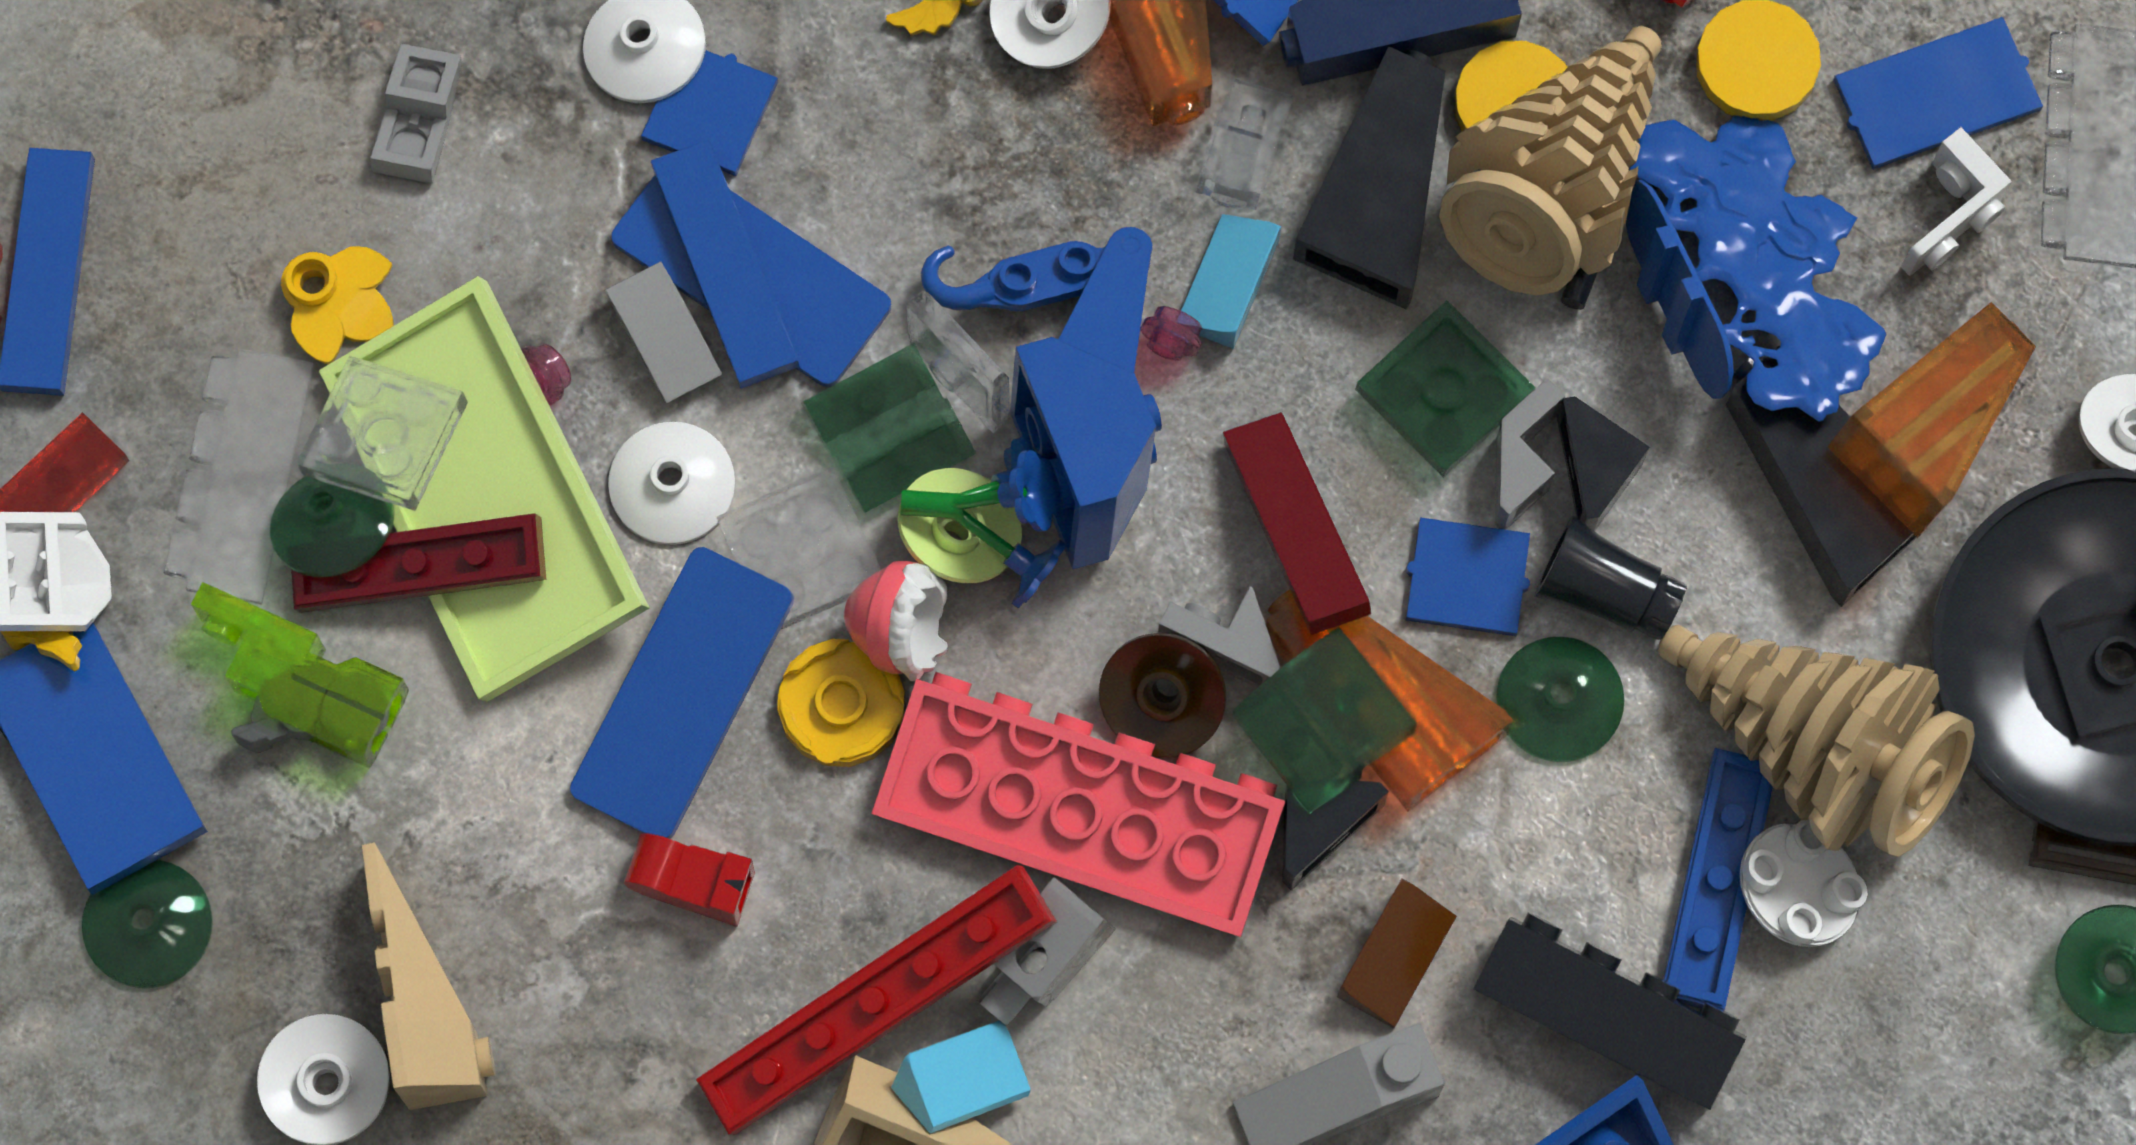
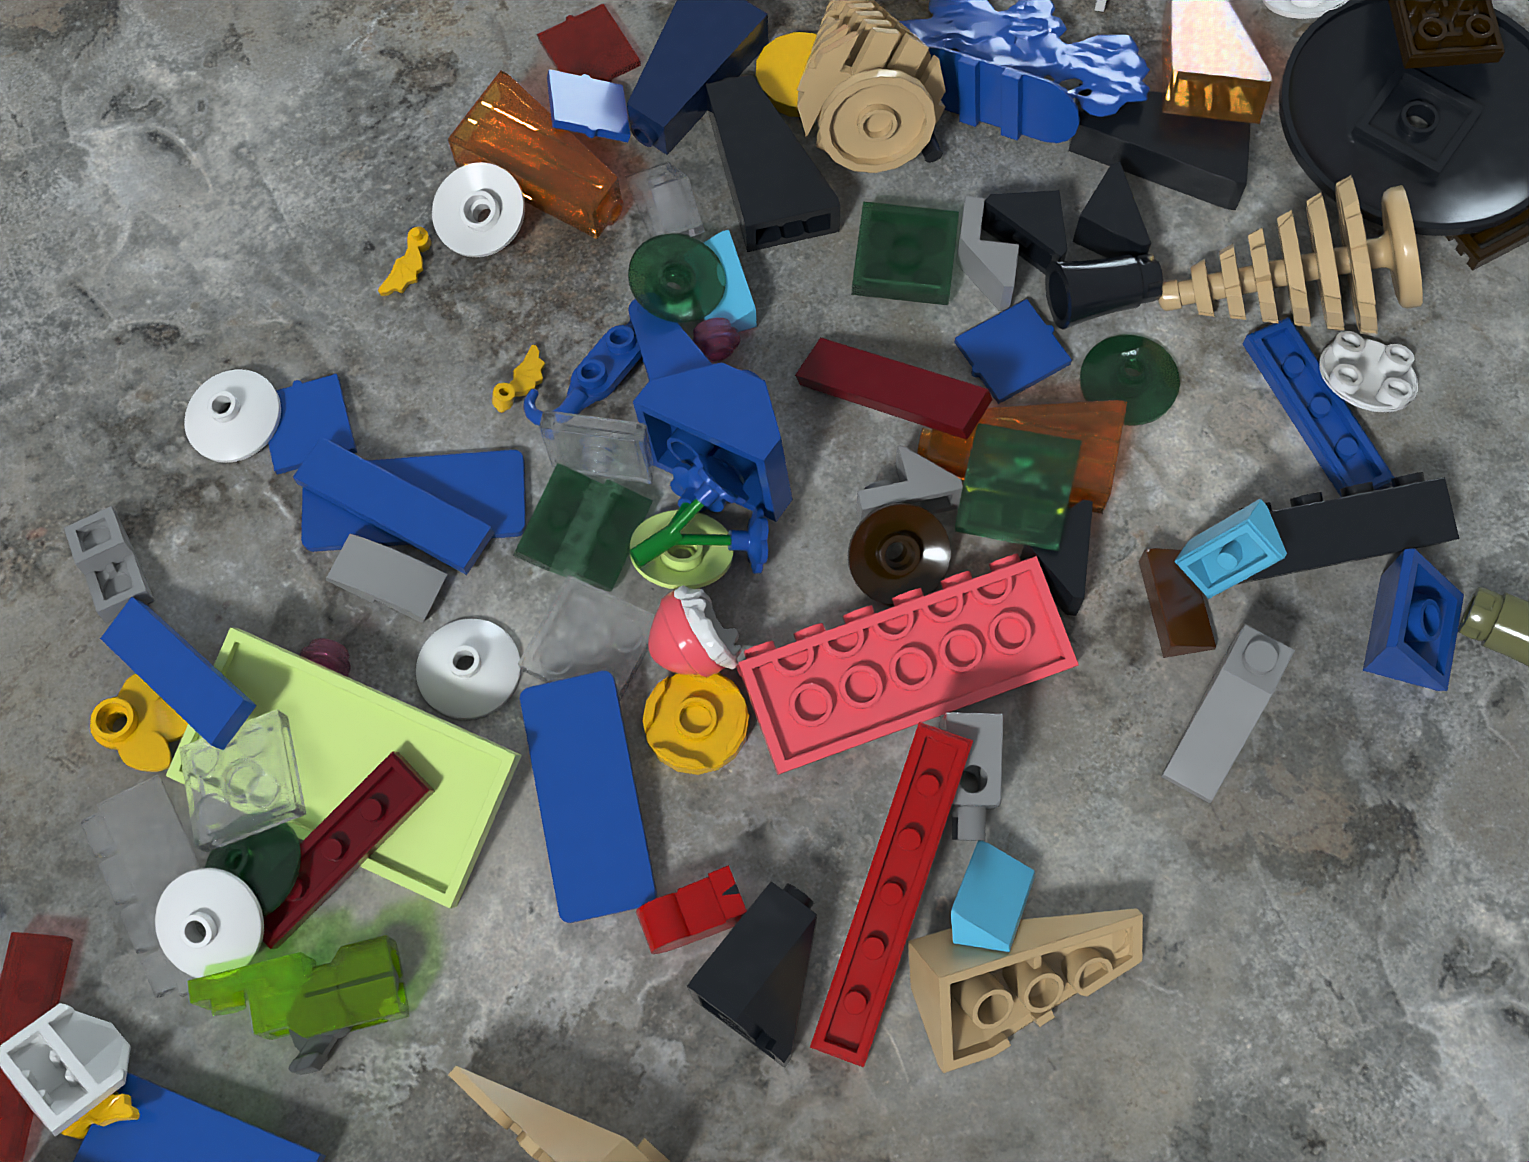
camera: 35 degrees left, 5 degrees down
(280, 538) = (225, 909): none -> white dish
(399, 280) = (178, 673): none -> blue tile
(707, 977) = (761, 971): none -> black slope
(957, 225) = (525, 378): none -> yellow piece
(1206, 221) = (678, 261): none -> clear green dish
(1475, 944) = (1232, 550): none -> medium azure slope
(1684, 514) = (1112, 219): none -> black slope

